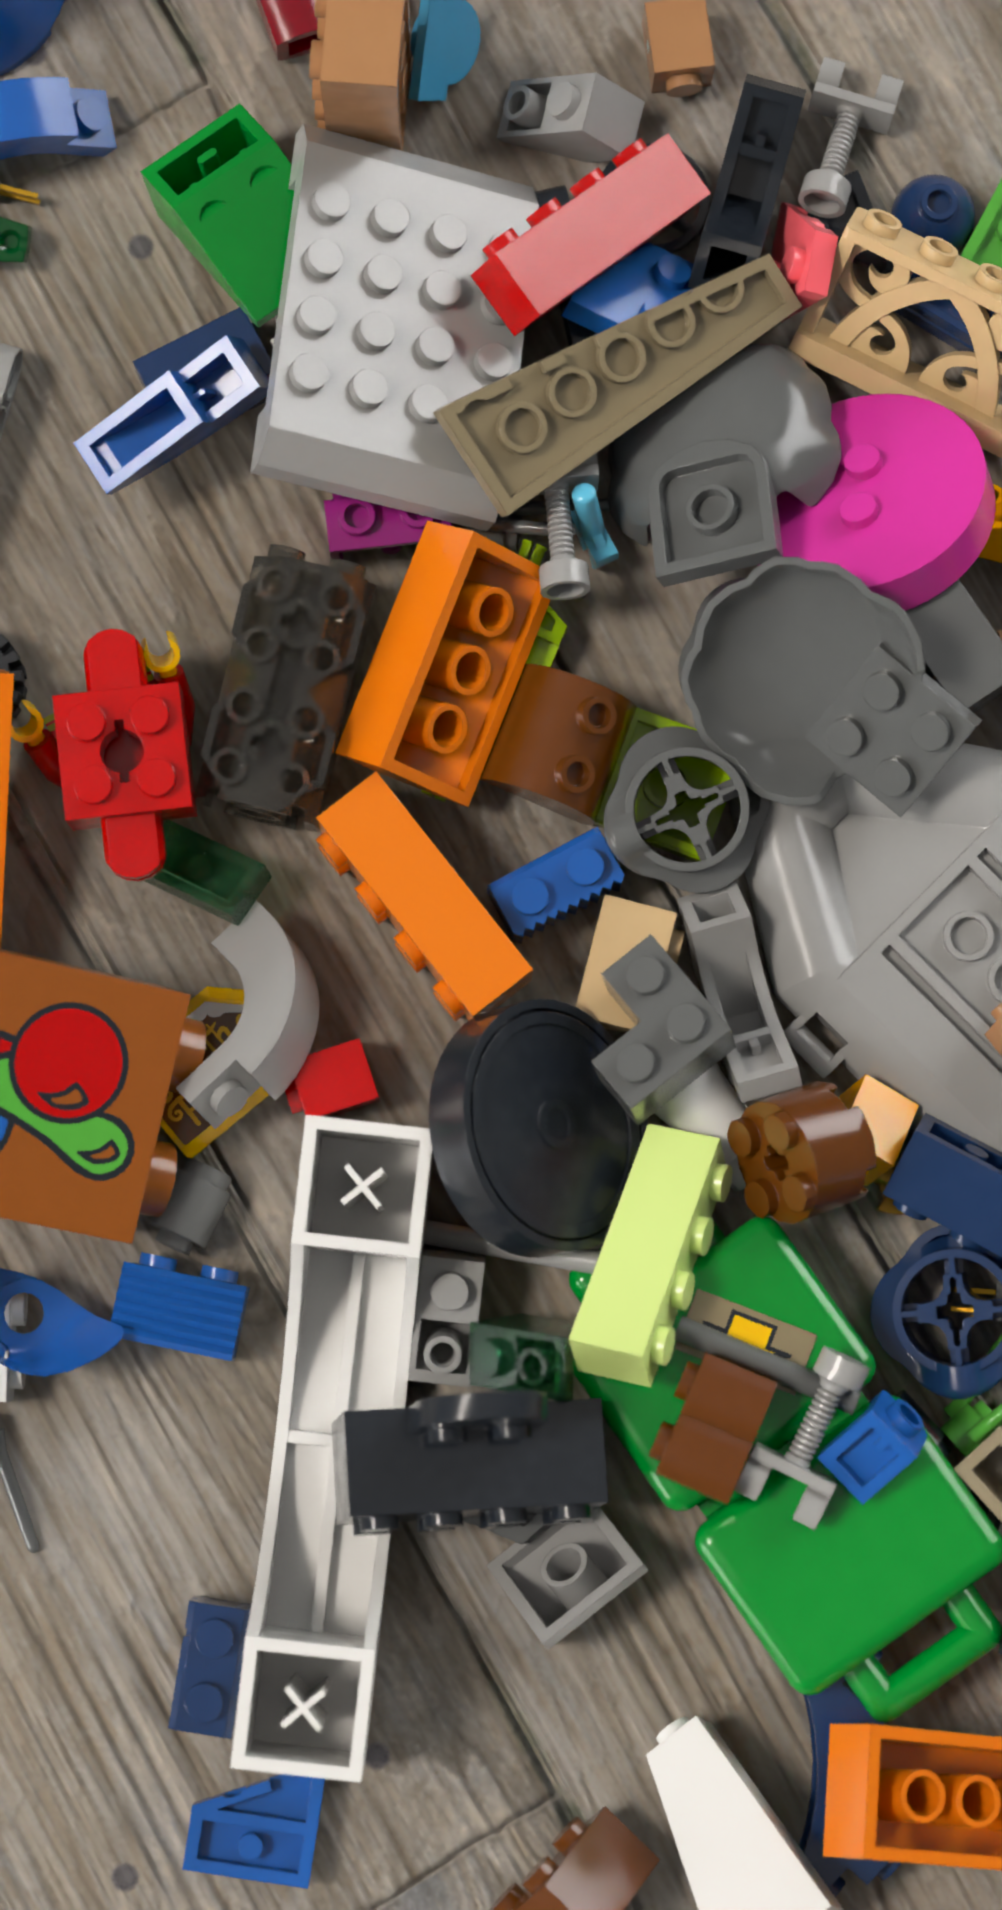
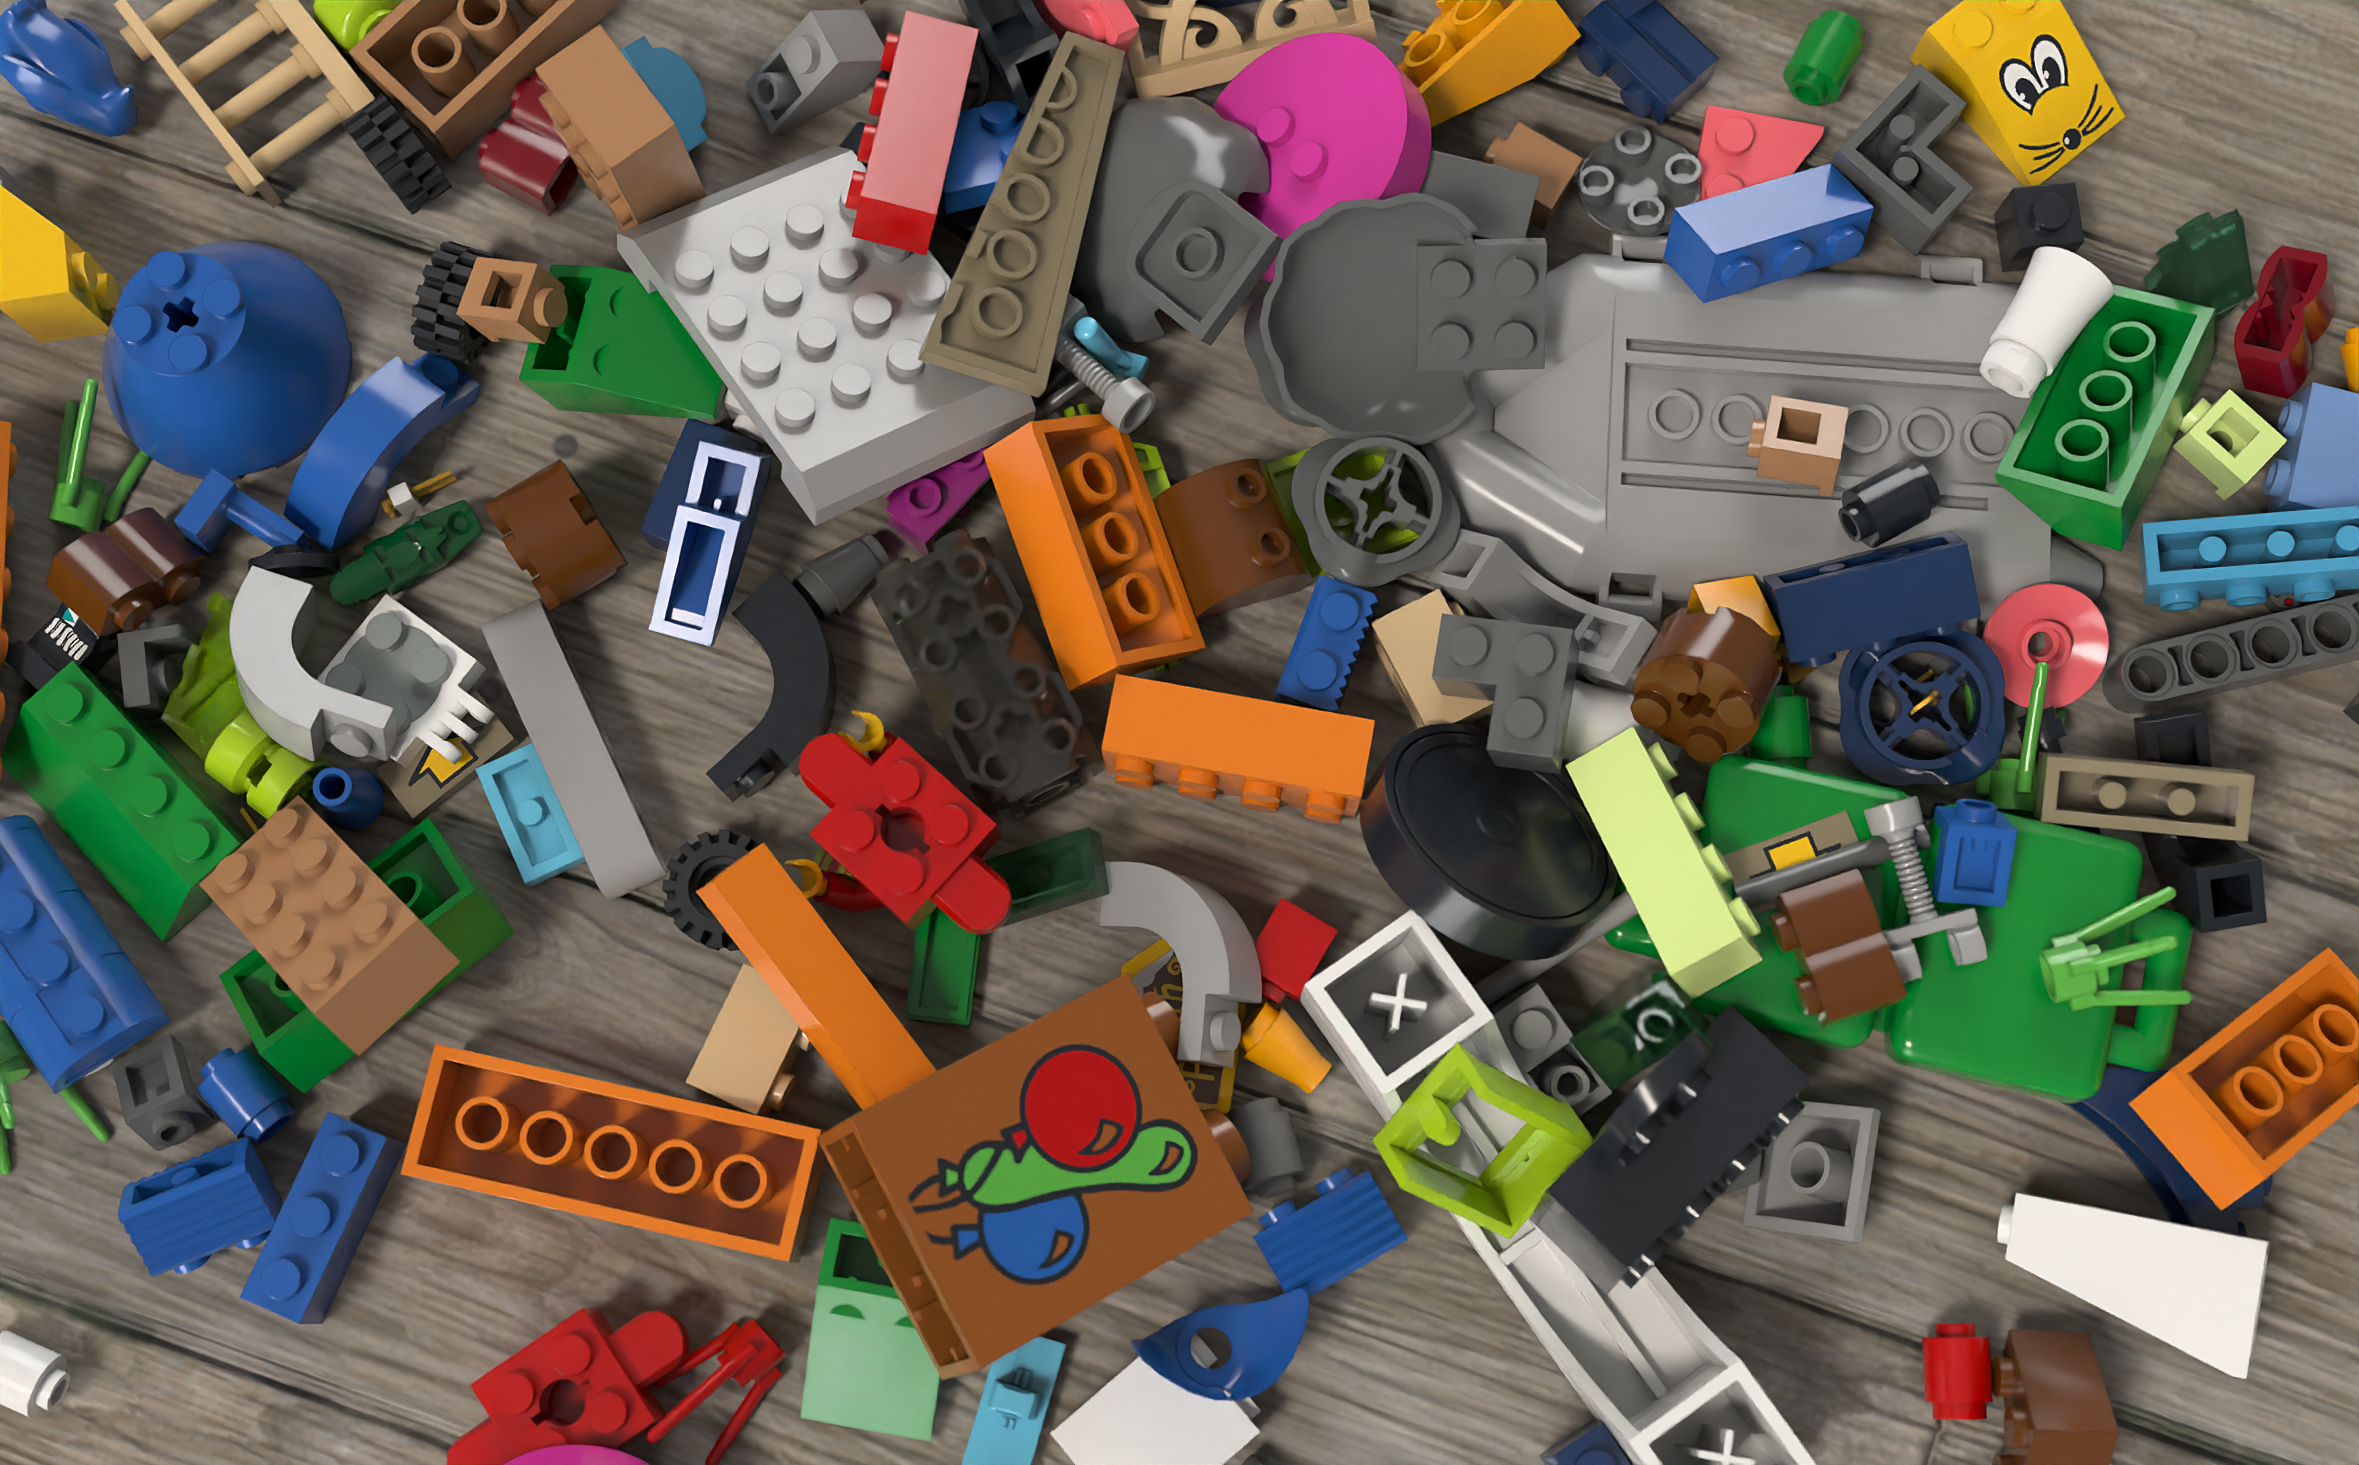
camera: 35 degrees left, 5 degrees down
(70, 311) = (555, 534): none -> reddish brown brick
(71, 880) = (943, 972): none -> green tile
(149, 72) = (436, 322): none -> black tyre
(156, 577) = (802, 692): none -> black arch
(192, 121) = (527, 305): none -> medium nougat brick
(254, 520) = (840, 575): none -> dark grey cone
(267, 1144) = (1281, 1047): none -> light orange cone
(327, 1389) = (1518, 1175): none -> lime window
(541, 1803) = (1957, 1372): none -> red brick
(837, 1239) = (1784, 730): none -> green brick
(872, 1595) = (2076, 970): none -> bright green plant

